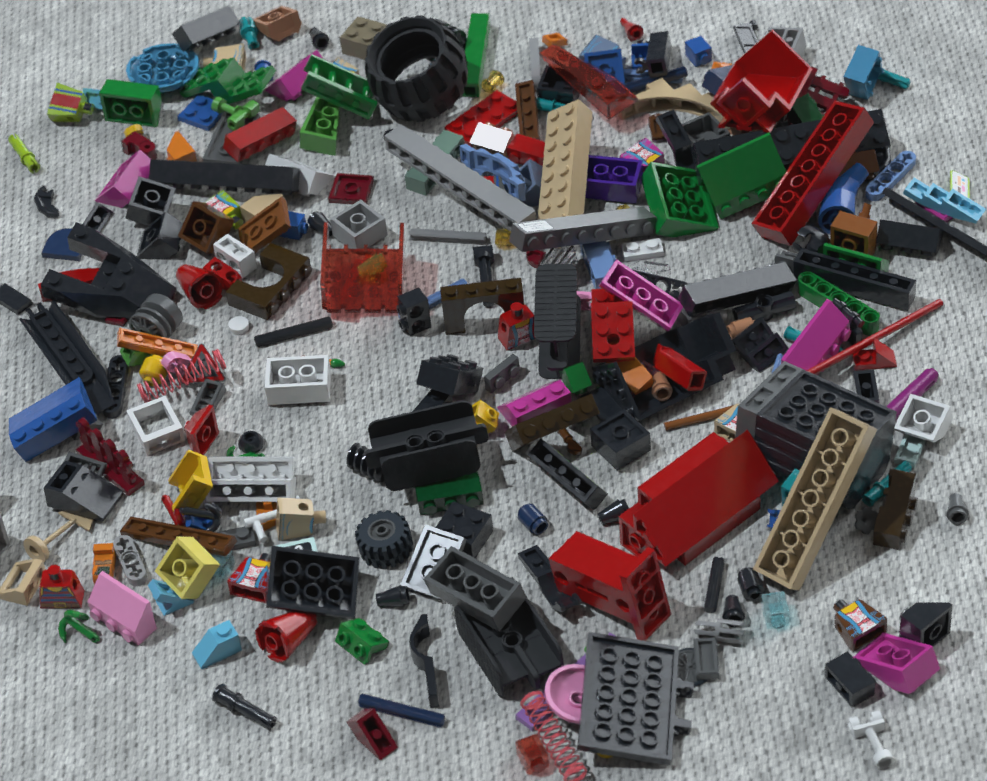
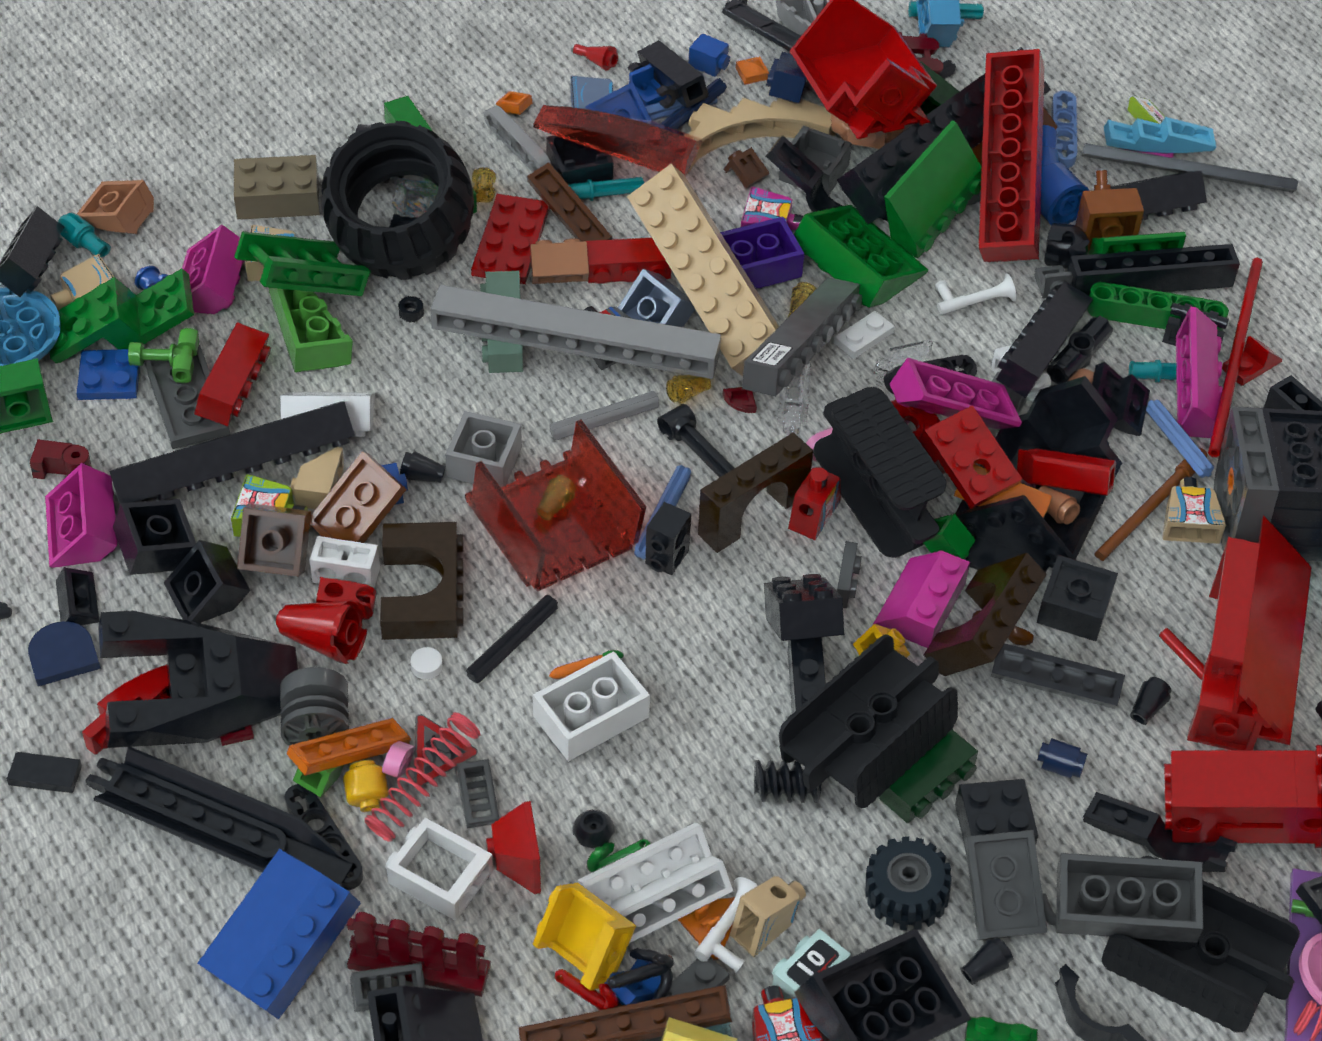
camera: 40 degrees left, 5 degrees up
(136, 127) = (29, 441): yellow tile -> none
(180, 149) = (130, 442): orange slope -> none
(319, 39) = (192, 209): black cone -> none
(351, 188) = (416, 402): dark red tile -> none
(497, 164) = (609, 292): medium blue piece -> none
(597, 260) = (839, 373): medium blue brick -> none
(715, 252) = (951, 304): none -> white piece

